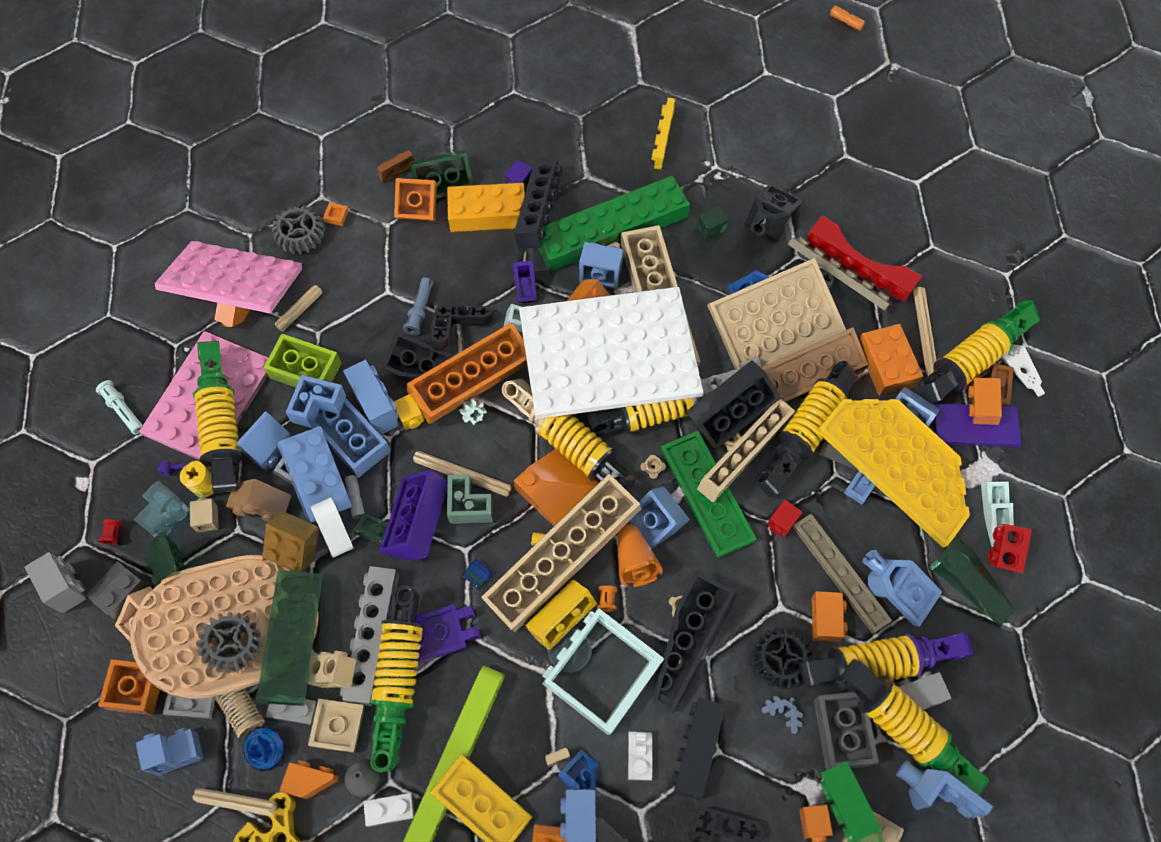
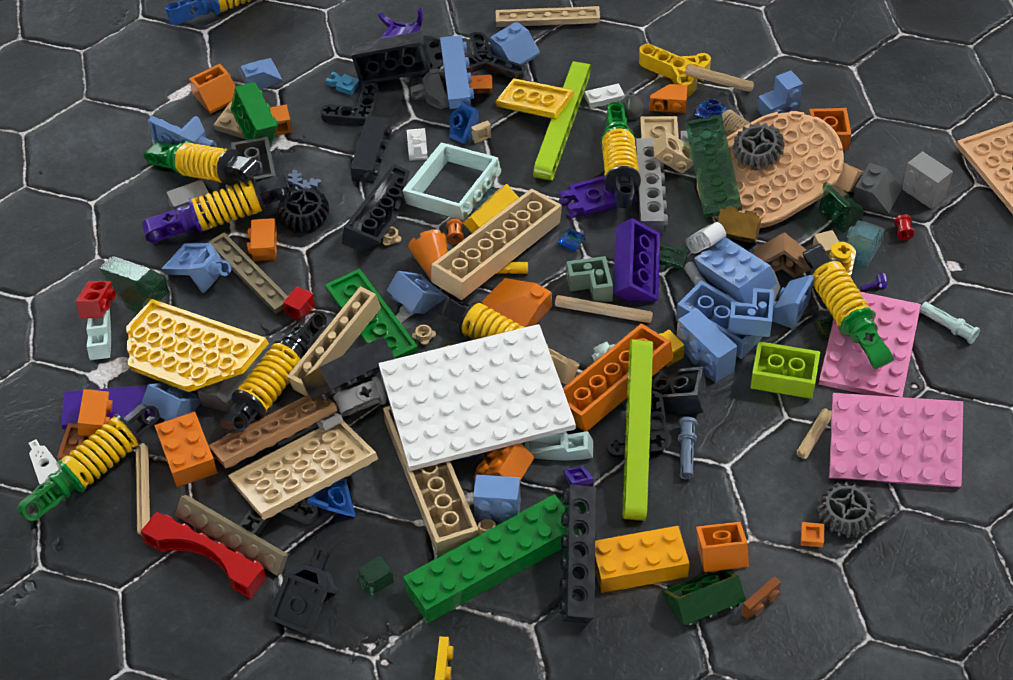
camera: 175 degrees right, 15 degrees down
(459, 309) = (637, 430): none -> lime beam
(518, 174) = (610, 602): dark purple brick -> none

